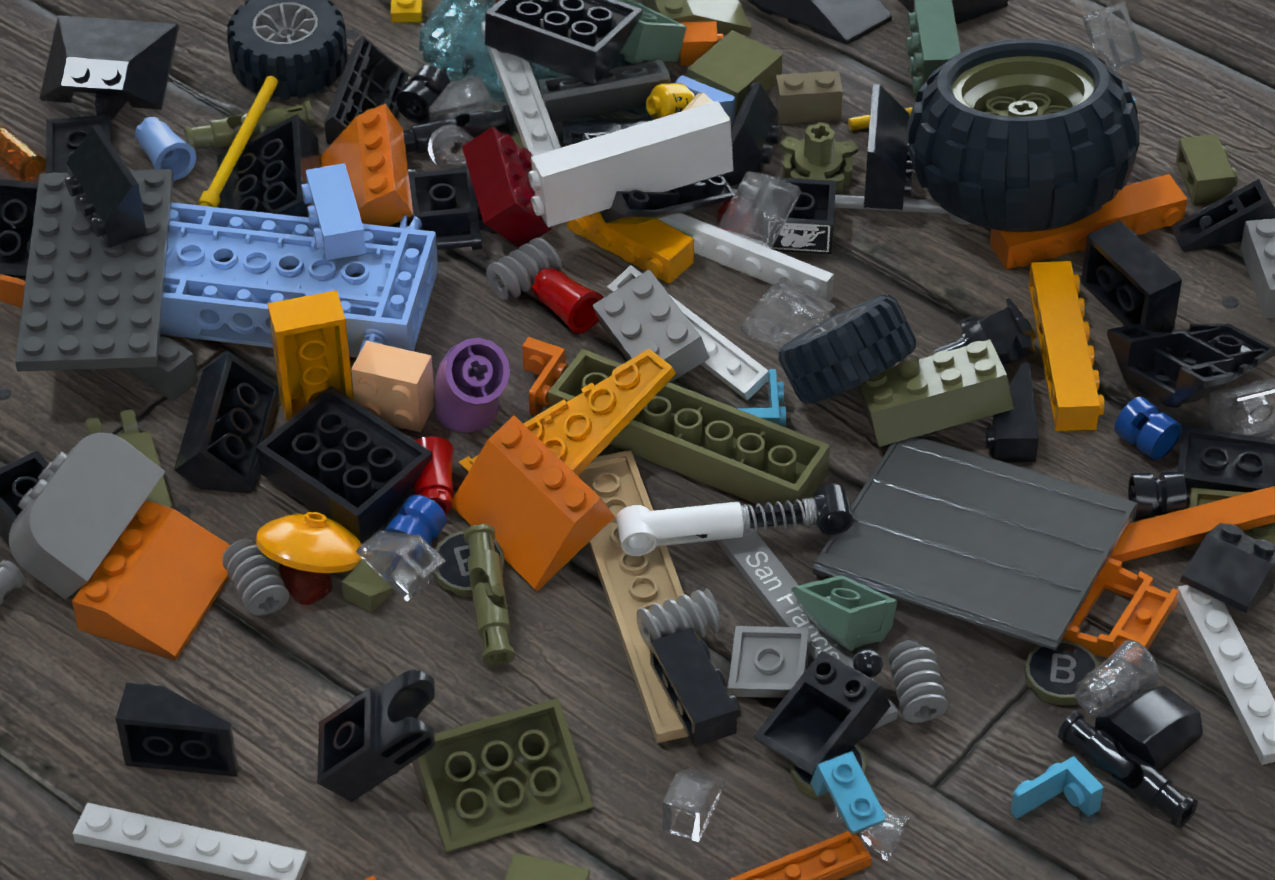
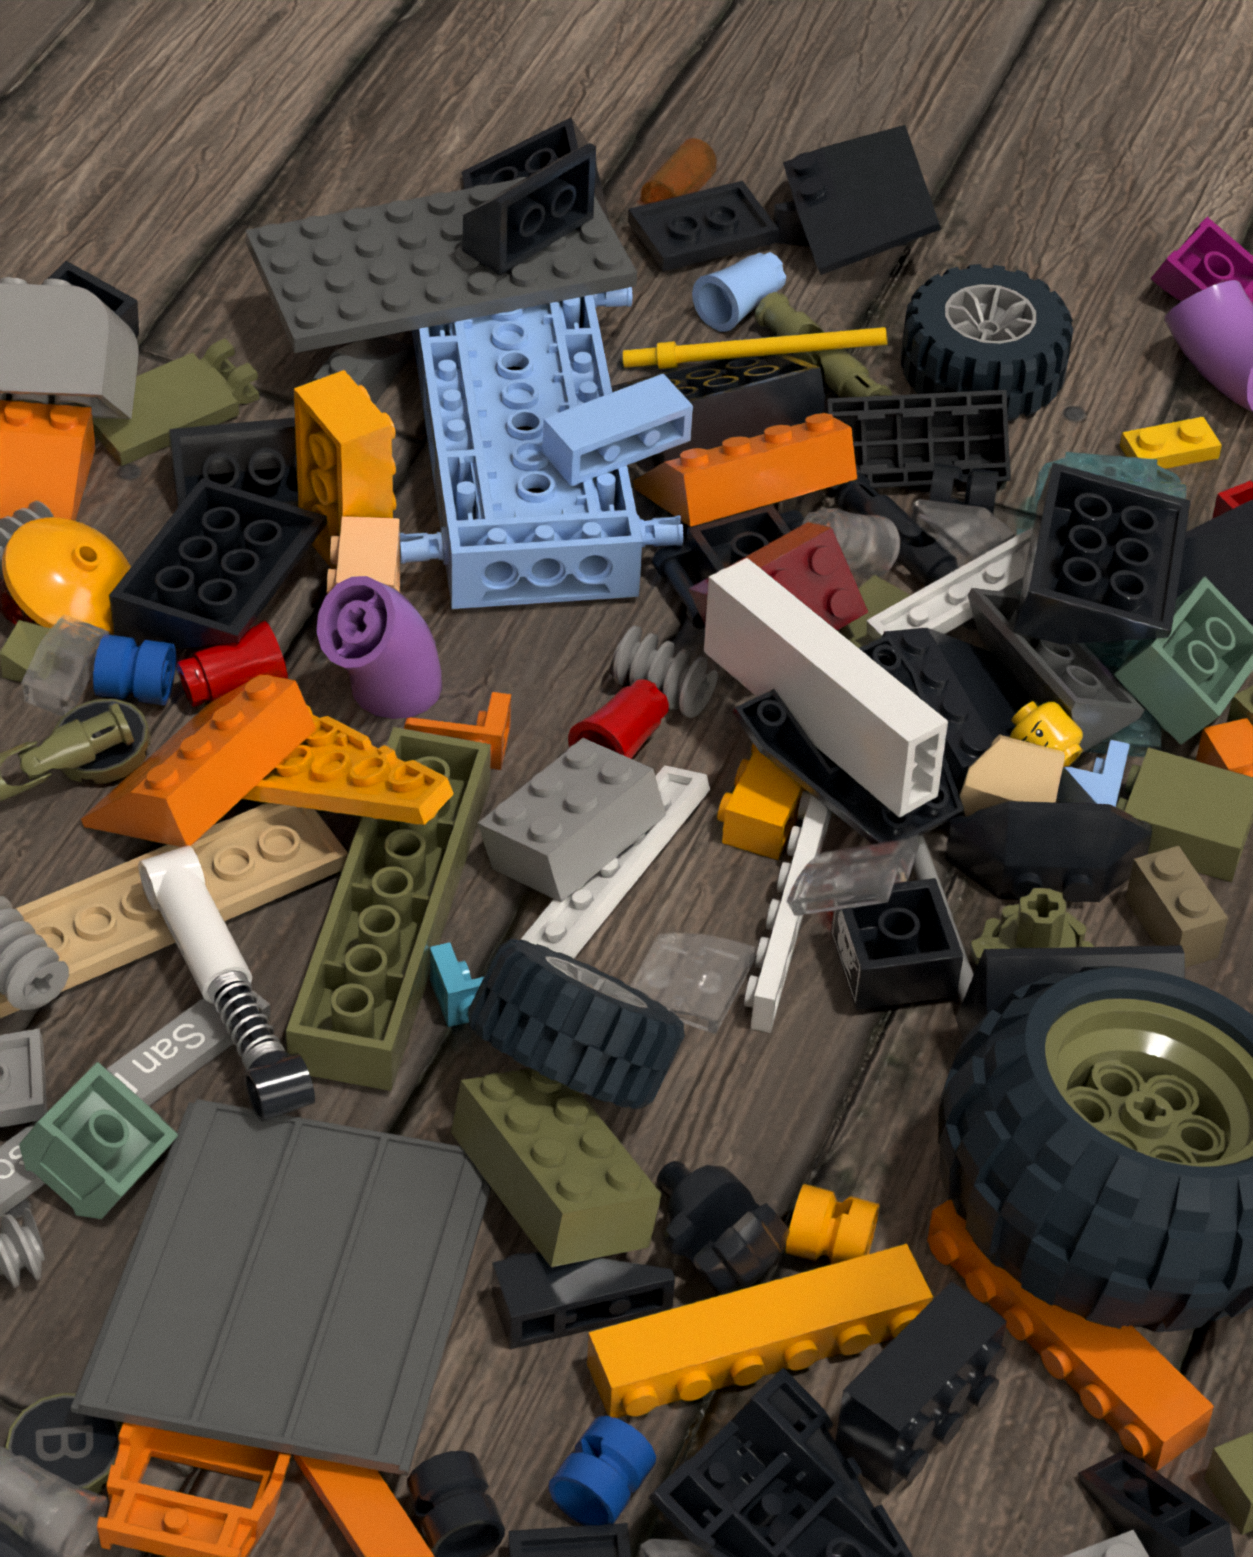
camera: 70 degrees right, 0 degrees up
(1005, 283) = (831, 1227): none -> light orange wheel

